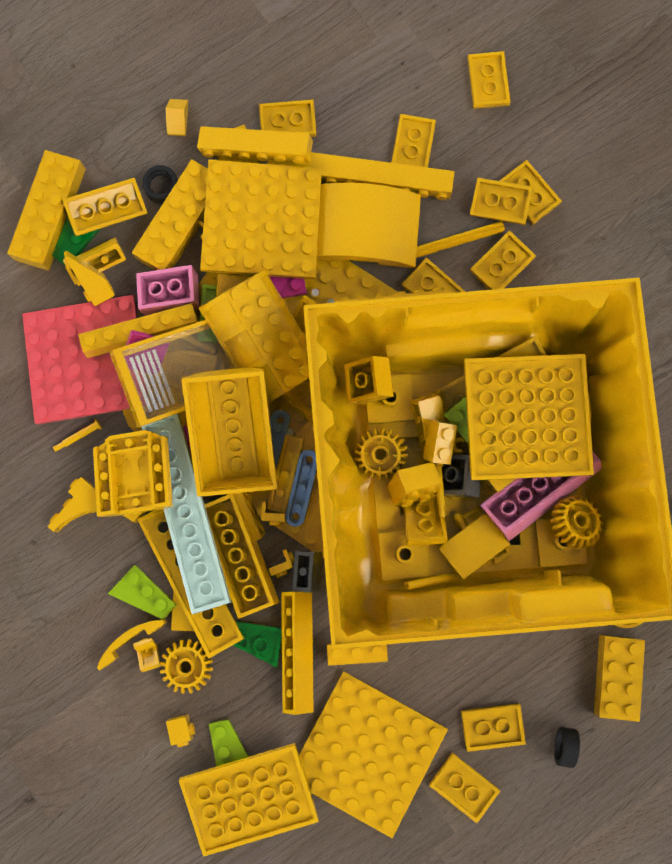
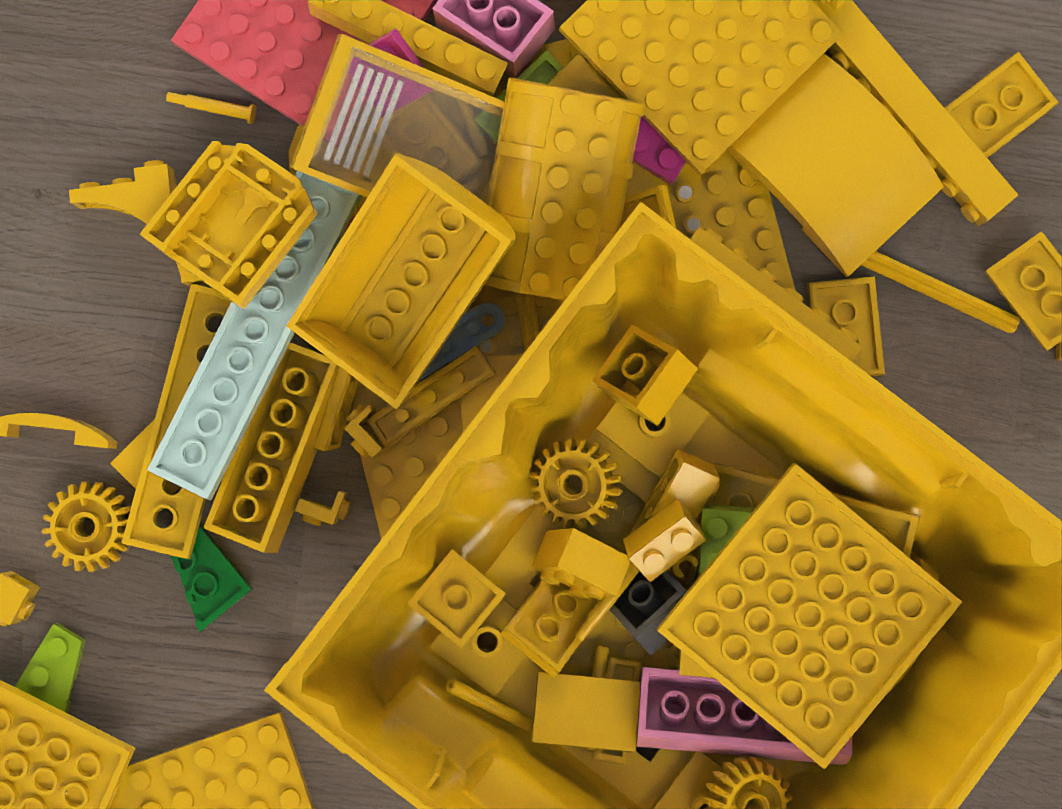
camera: 40 degrees right, 5 degrees up
(143, 593) = (116, 385): lime wing -> none
(147, 654) = (53, 467): yellow bracket -> none
(297, 653) = (241, 637): yellow brick -> none
(301, 488) = (430, 436): medium blue plate -> none
(307, 571) = (345, 546): dark grey brick -> none
(375, 546) = (456, 598): none -> yellow plate
(503, 262) = (968, 375): yellow plate -> none

